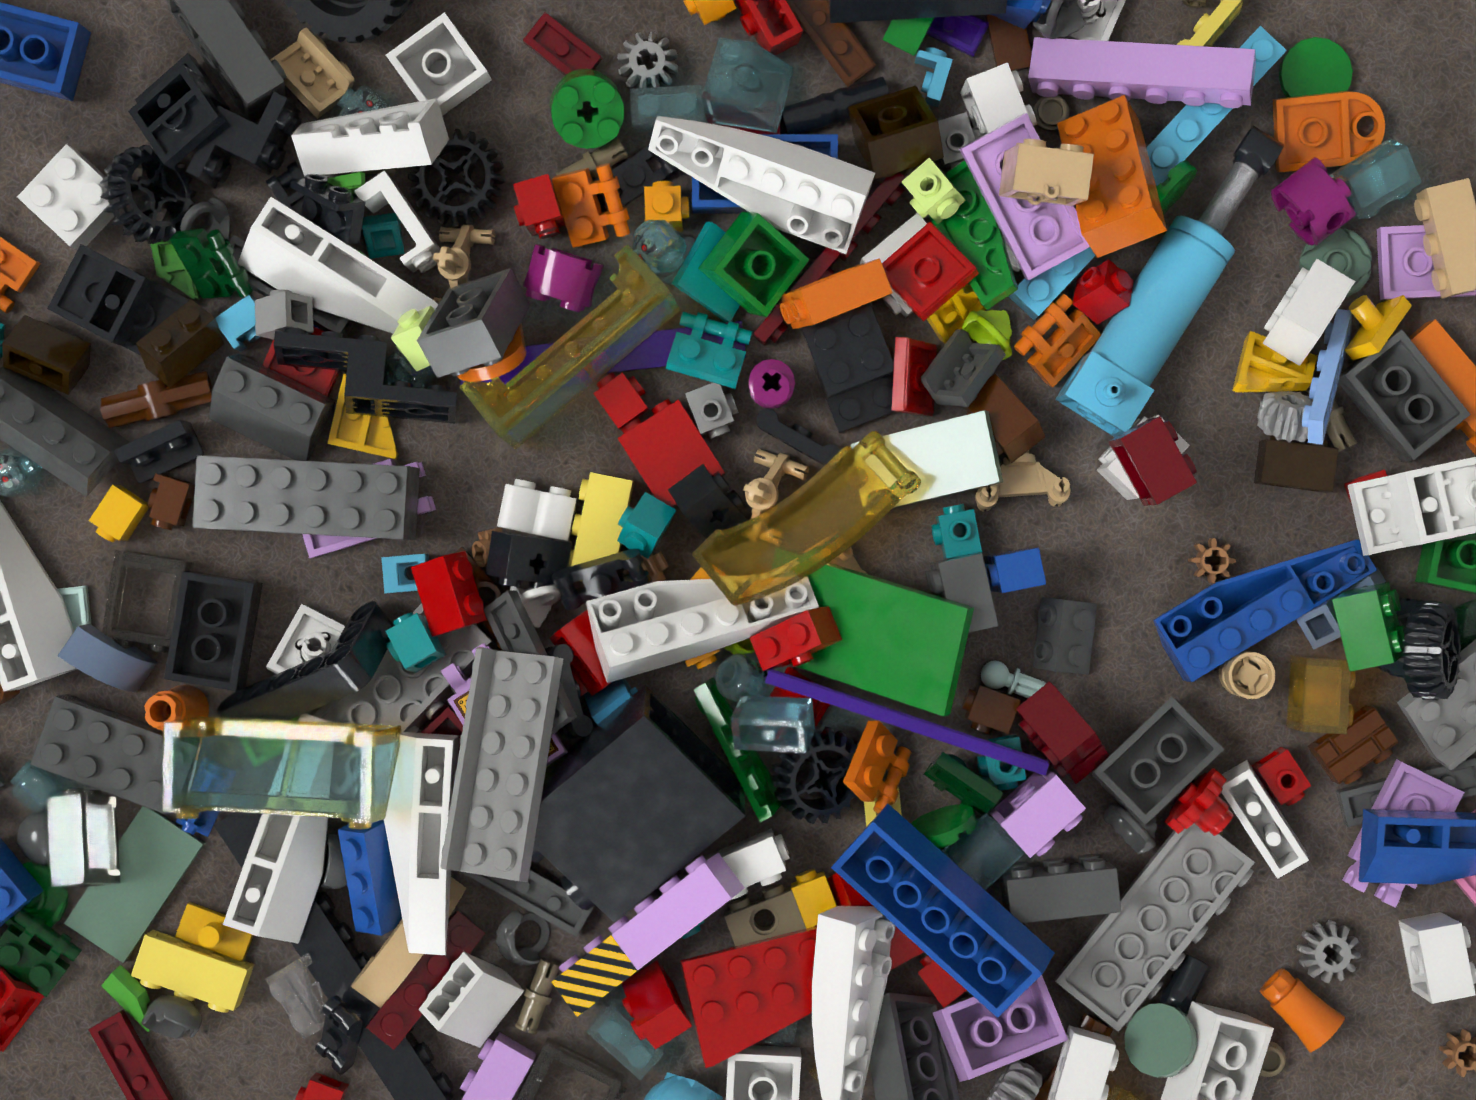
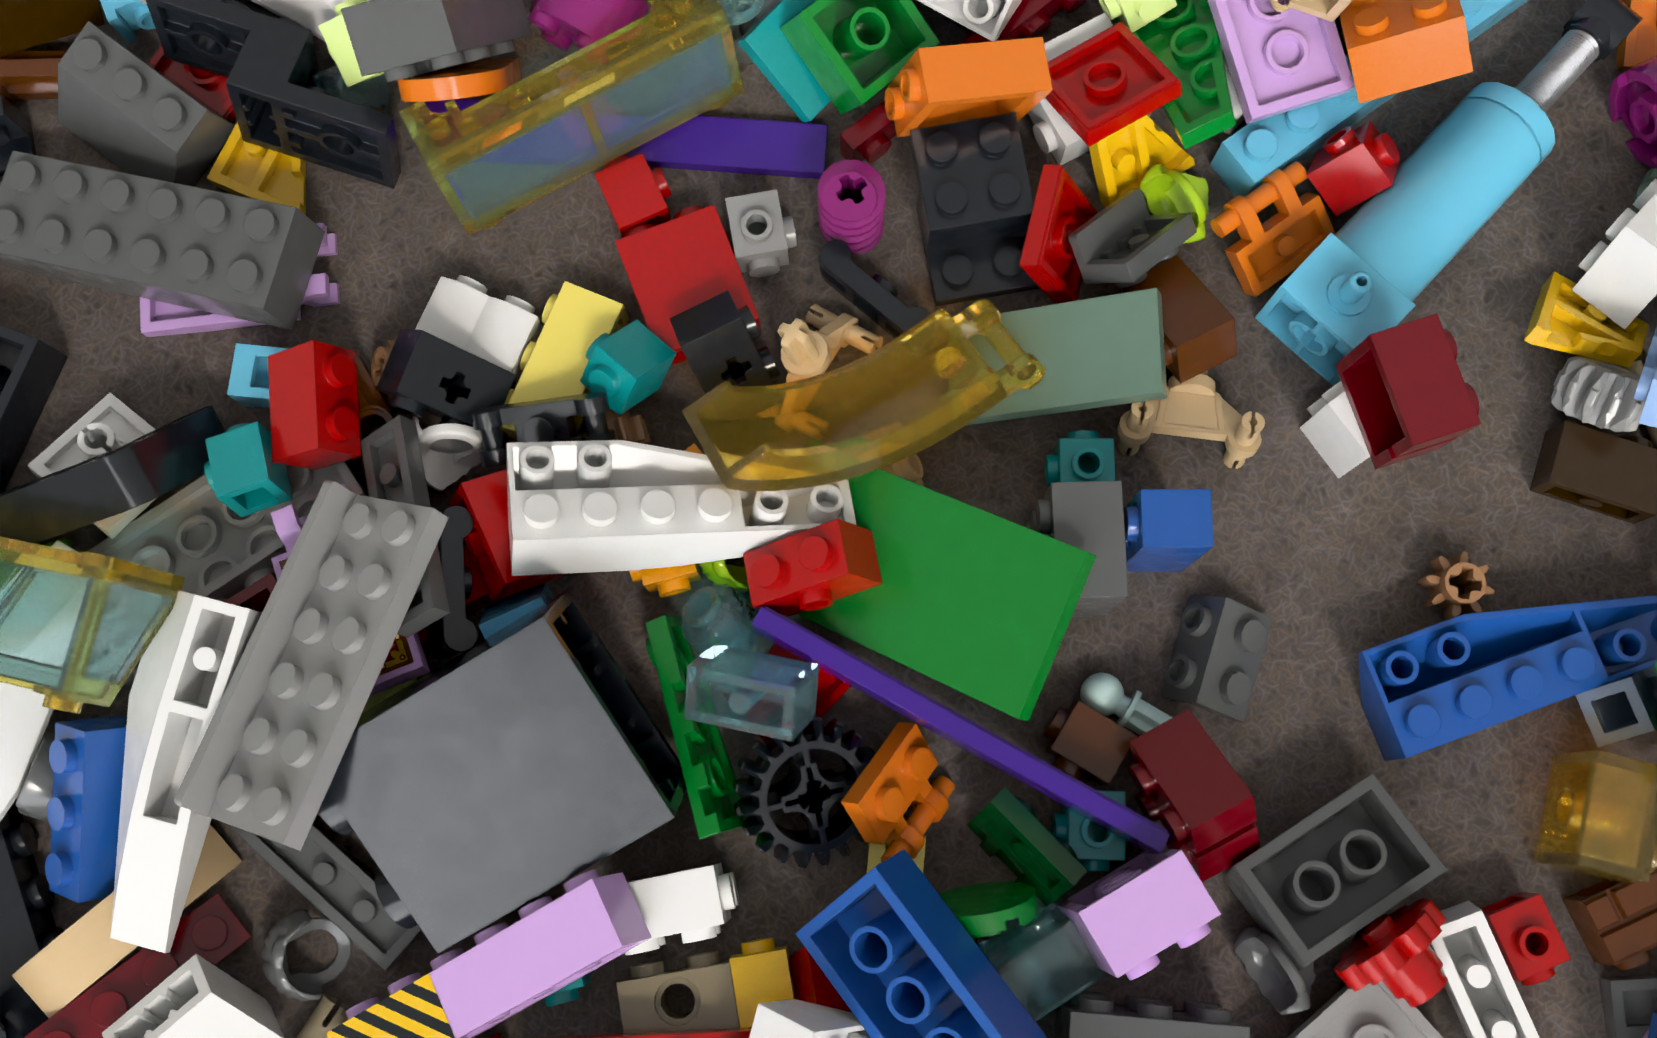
camera: 15 degrees right, 10 degrees down
(705, 358) = (766, 157): teal plate -> none
(1175, 186) = (1485, 43): green tile -> none
(1247, 675) = (1490, 766): tan wheel -> none

